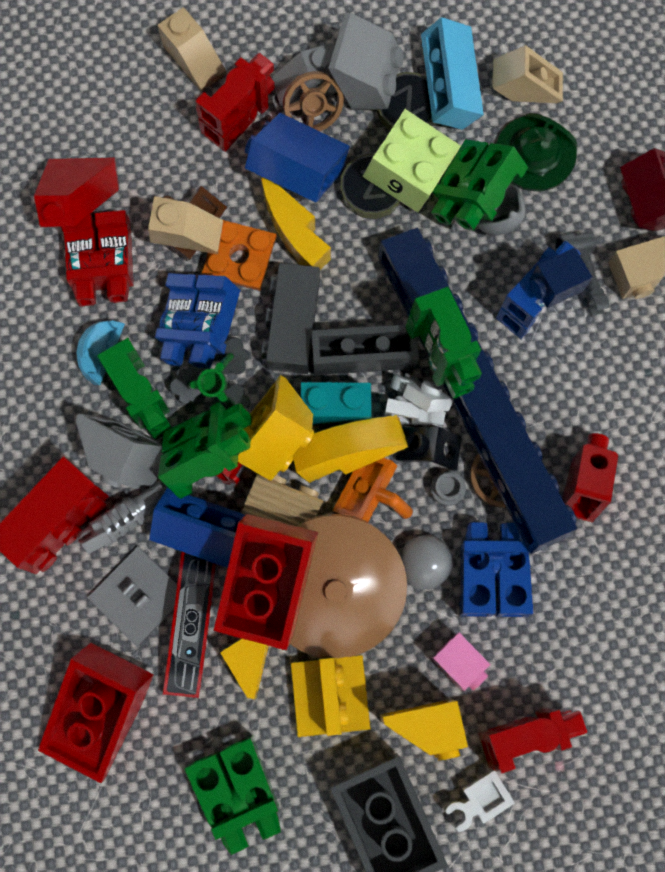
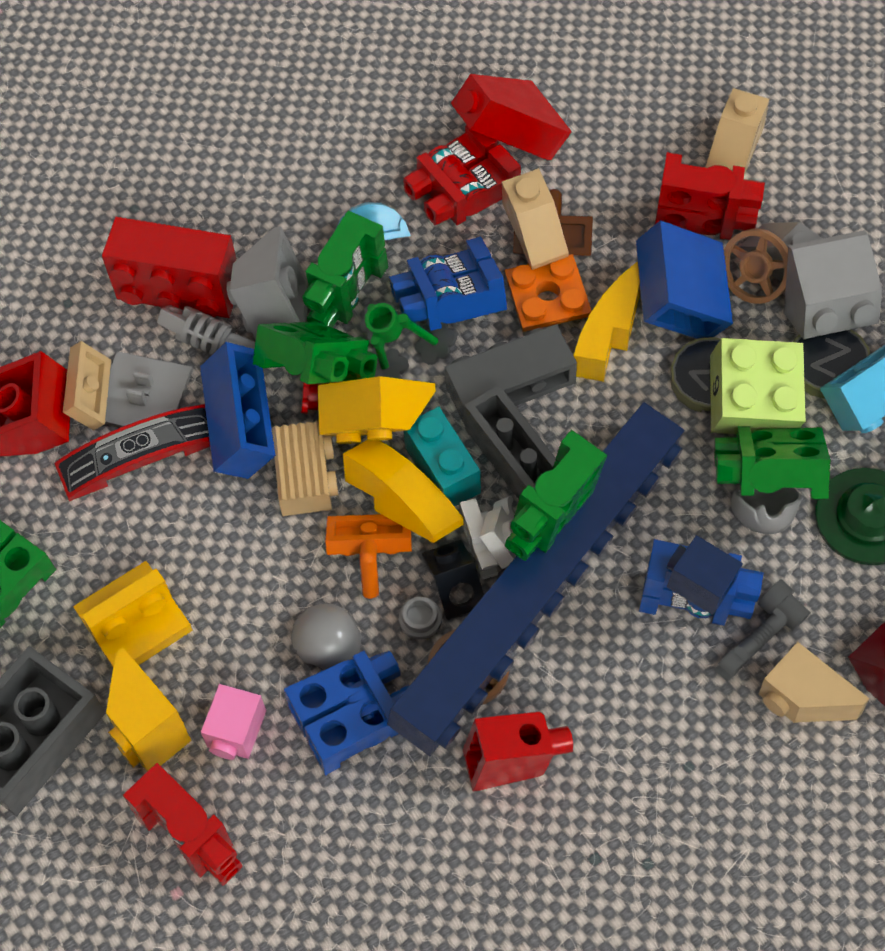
camera: 65 degrees right, 15 degrees down
(112, 636) = (87, 386): none -> tan plate
(246, 663) = (128, 519): yellow slope -> none
(265, 581) = (204, 467): red brick -> none
(351, 588) = (246, 555): medium nougat dish -> none
(486, 799) = (97, 823): white plate -> none

